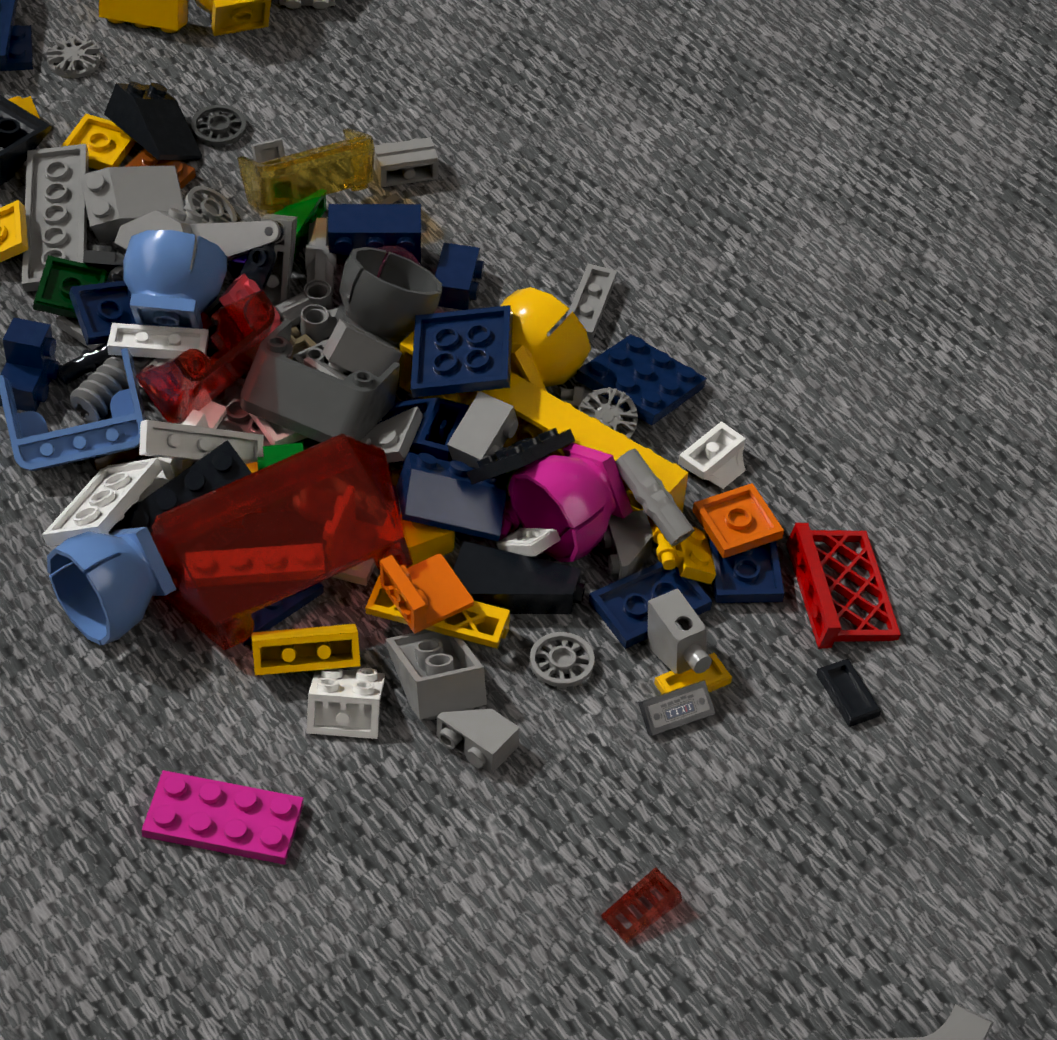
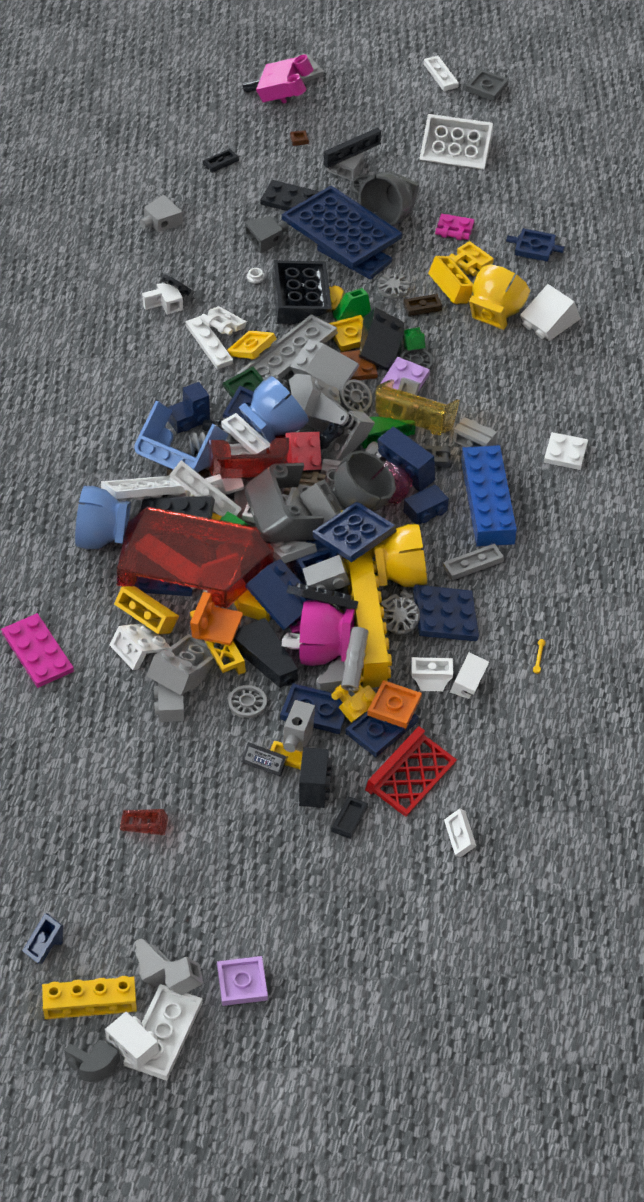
camera: 50 degrees right, 0 degrees up
(65, 106) = (353, 304): none -> green slope
(141, 56) = (422, 304): none -> dark brown plate
(193, 98) = (413, 339): none -> green brick
(226, 144) = (407, 369): none -> lavender plate
(457, 691) = (172, 671): none -> light grey brick
(510, 216) = (488, 496): none -> blue brick
(517, 111) = (566, 451): none -> white plate
(760, 426) = (469, 676): none -> white hinge
(770, 676) = (315, 777): none -> black brick
(804, 367) = (537, 669): none -> yellow hinge
(981, 605) = (460, 832): none -> white plate
(1002, 982) = (242, 981): none -> lavender plate

